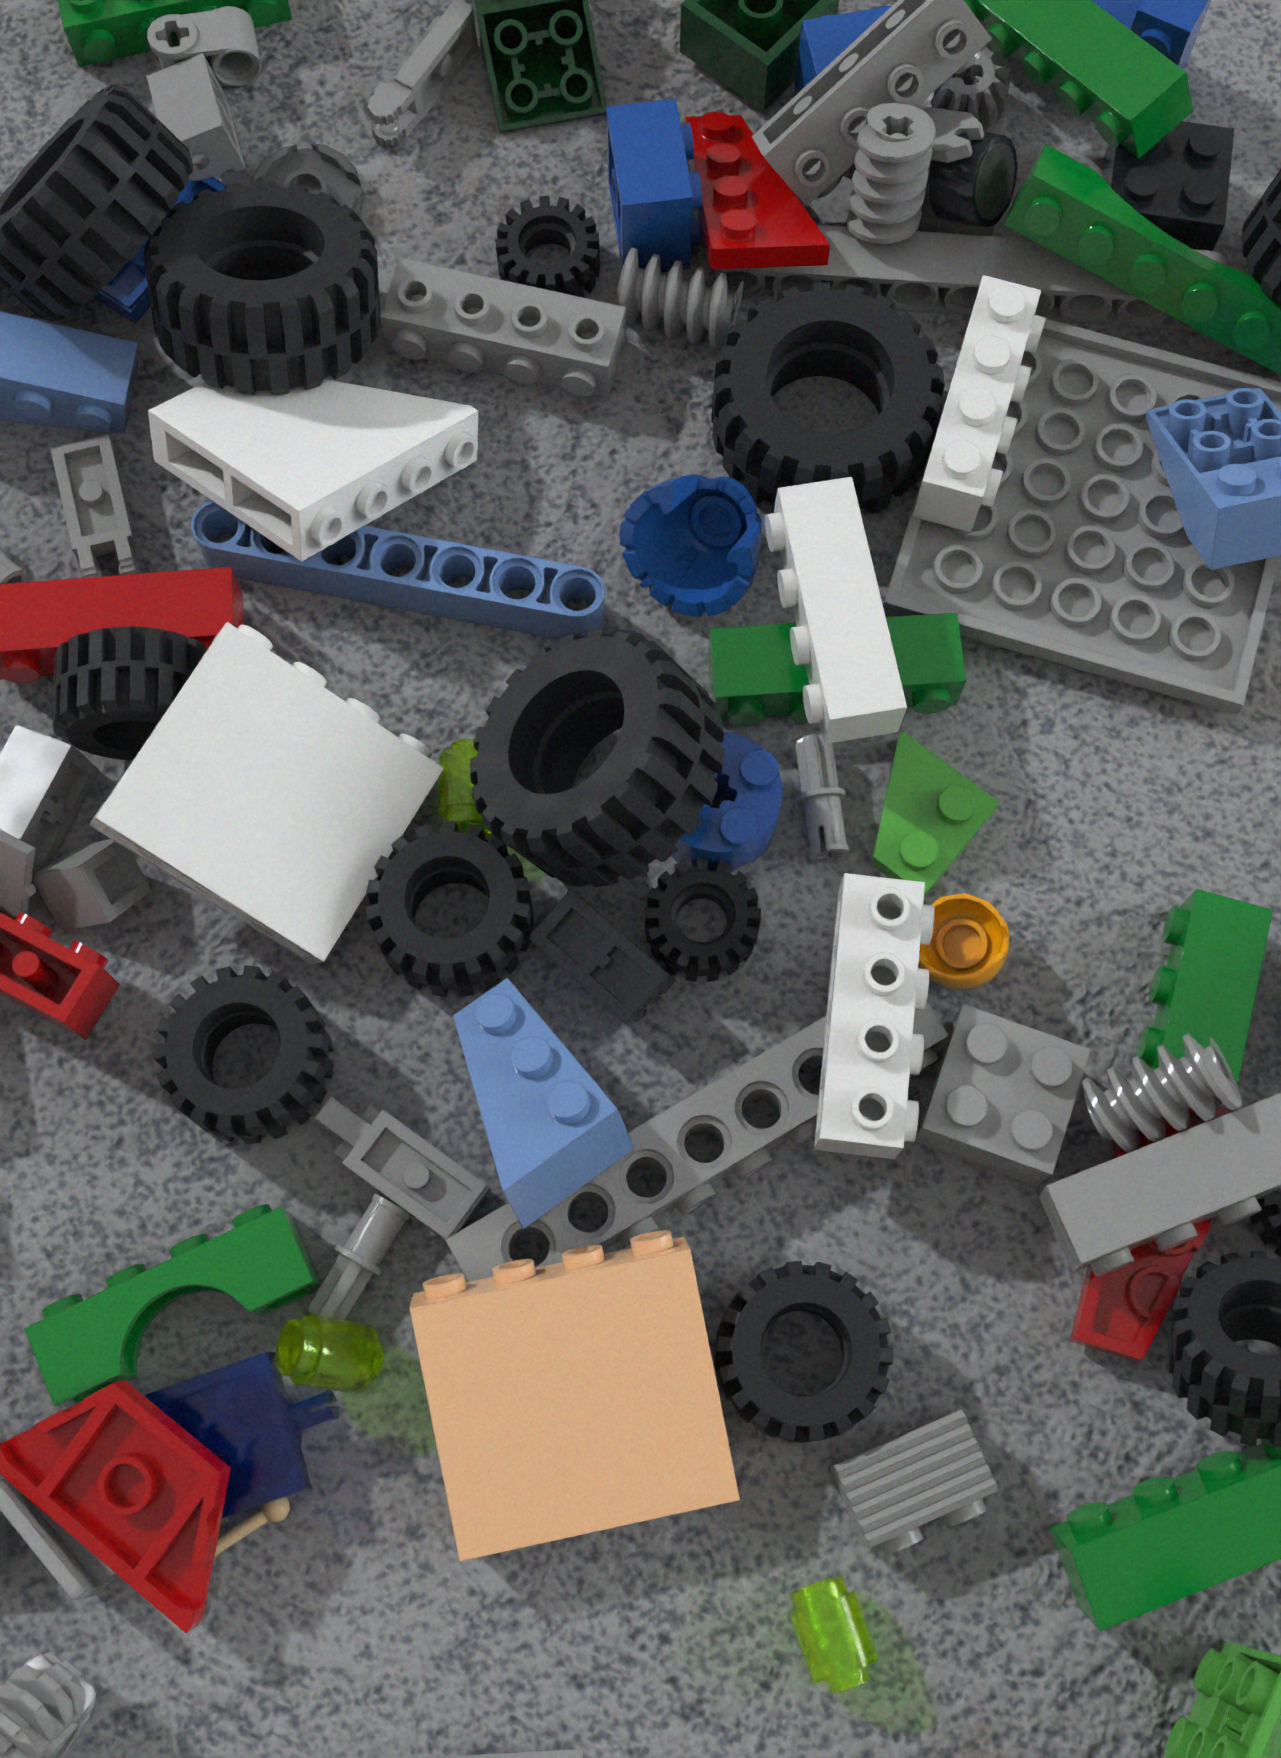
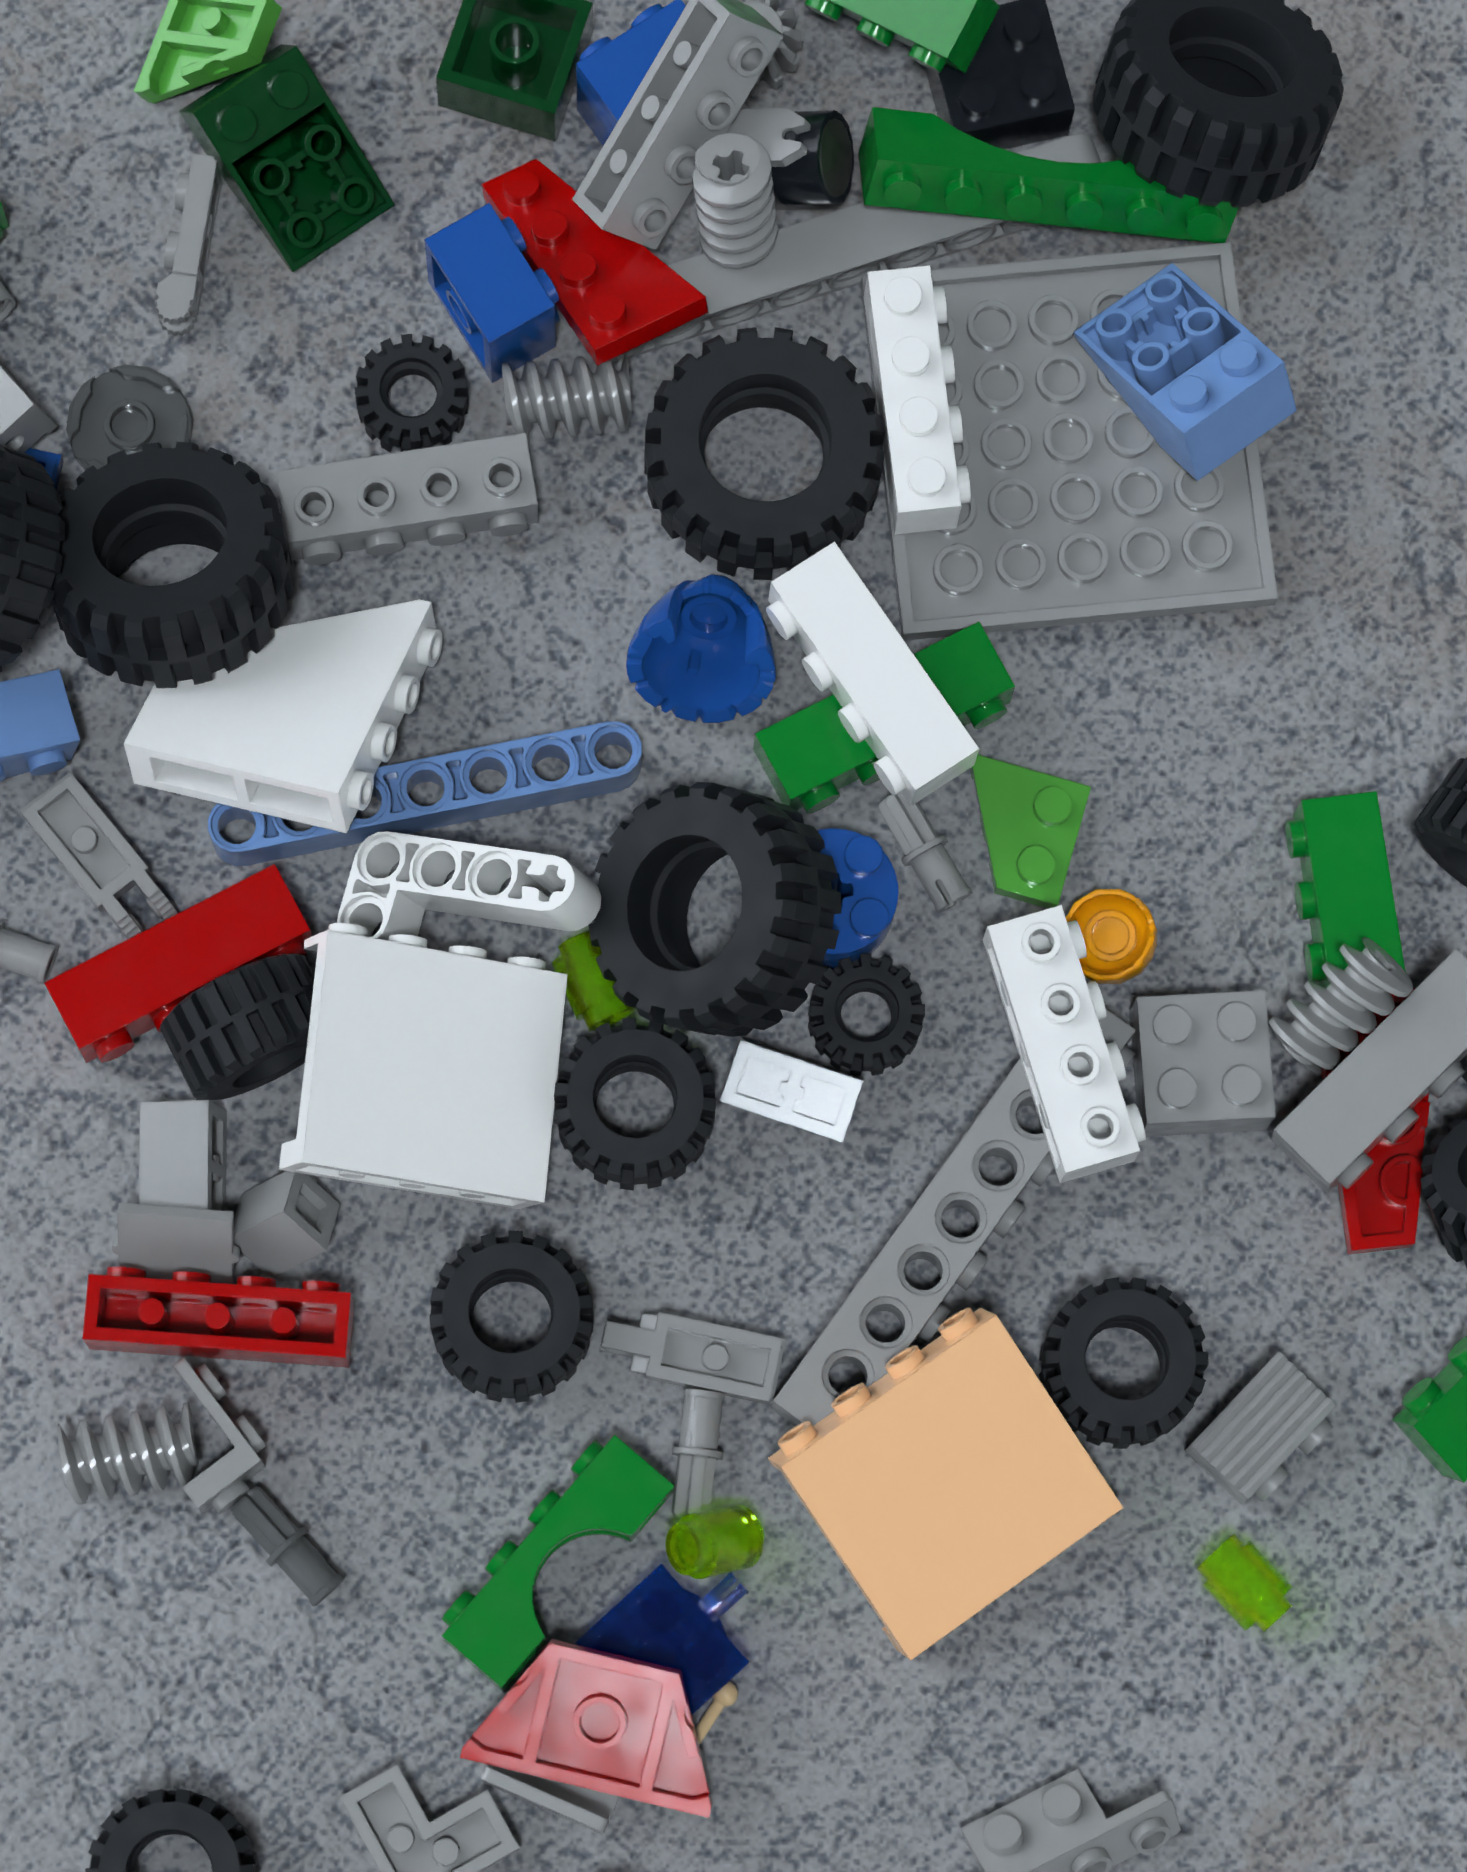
camera: 30 degrees left, 5 degrees up
(349, 628) = (472, 891): none -> white beam
(537, 1103) = (800, 1243): medium blue wedge -> none

